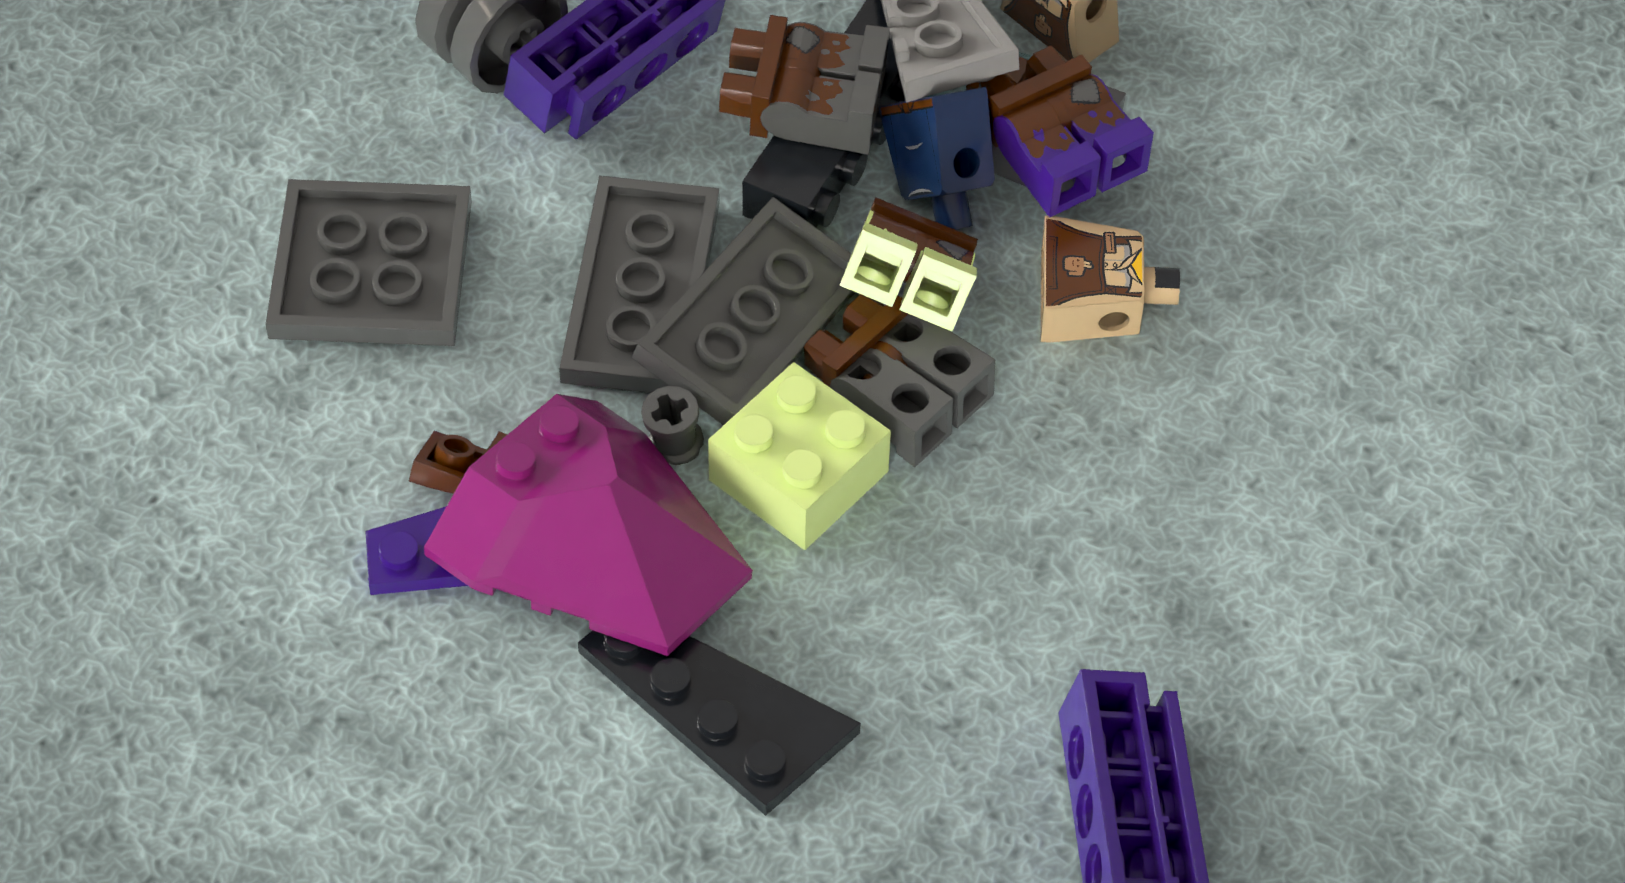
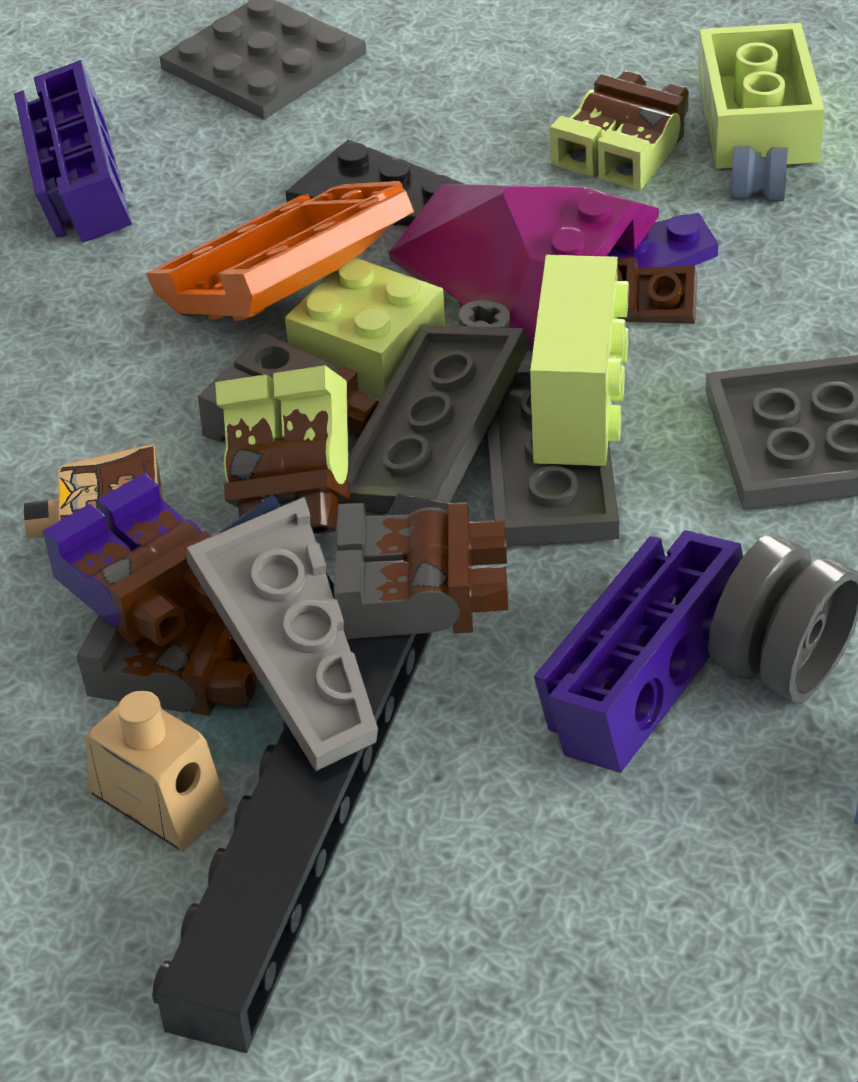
camera: 175 degrees right, 10 degrees down
(222, 733) = (760, 92): none -> yellowish green brick
(273, 624) = (757, 173): none -> sand blue wheel
(411, 737) = (621, 125): none -> hips
(594, 276) = (578, 360): none -> yellowish green brick
(872, 545) = (279, 251): none -> orange wedge

